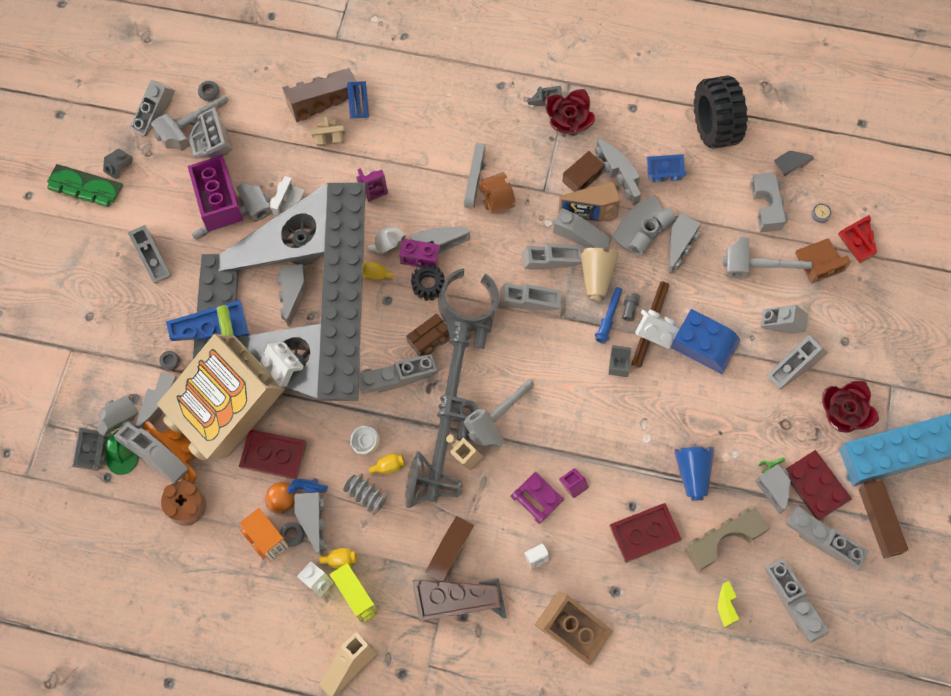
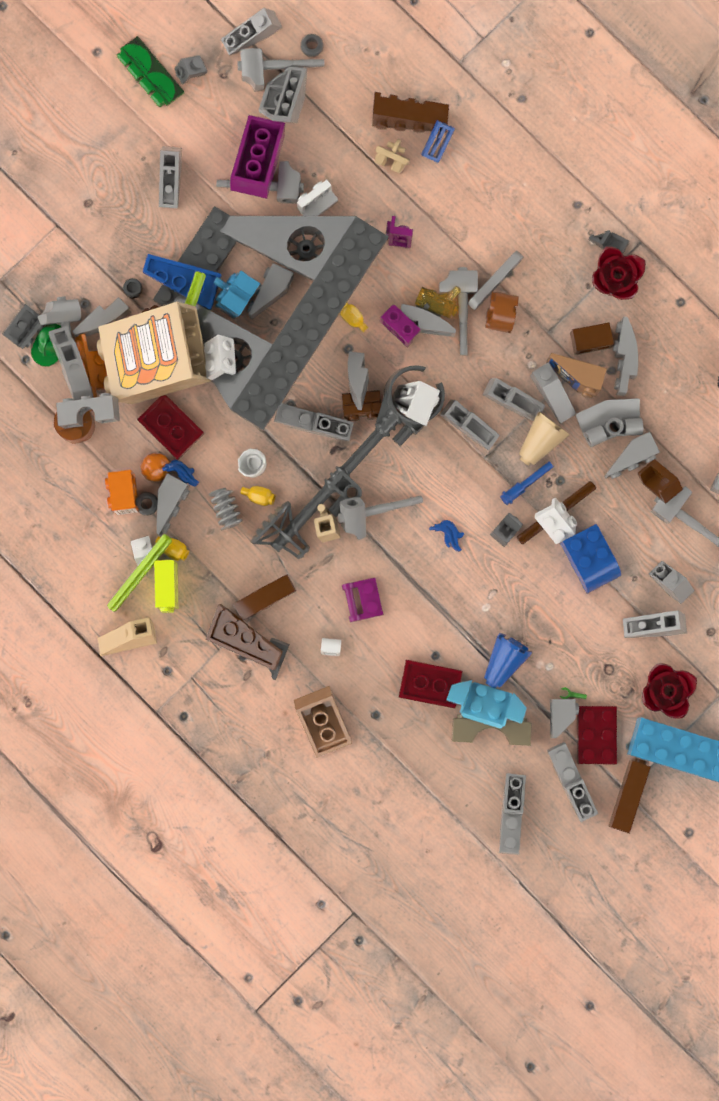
camera: 25 degrees right, 15 degrees up
(175, 488) = (71, 411): none -> light grey arch
(262, 308) = (235, 293): none -> dark azure brick
(322, 598) = (139, 573): none -> lime axle
(387, 239) = (380, 295): white piece -> none
(411, 314) = (358, 378): none -> light grey slope
(427, 272) = (391, 344): black tyre -> none
(442, 218) = (438, 304): none -> clear yellow piece
(450, 192) = (468, 283): none -> light grey piece
(474, 297) = (416, 400): none -> white wedge
(574, 483) = (401, 606): magenta slope -> none
(575, 395) = (450, 534): none -> blue piece
(630, 308) = (548, 488): dark grey pin -> none
(665, 166) = (668, 380): blue bracket -> none
(708, 516) = (487, 704): none -> medium azure piece
(717, 244) = (660, 481): none -> reddish brown panel
(725, 607) = (452, 783): neon yellow slope -> none

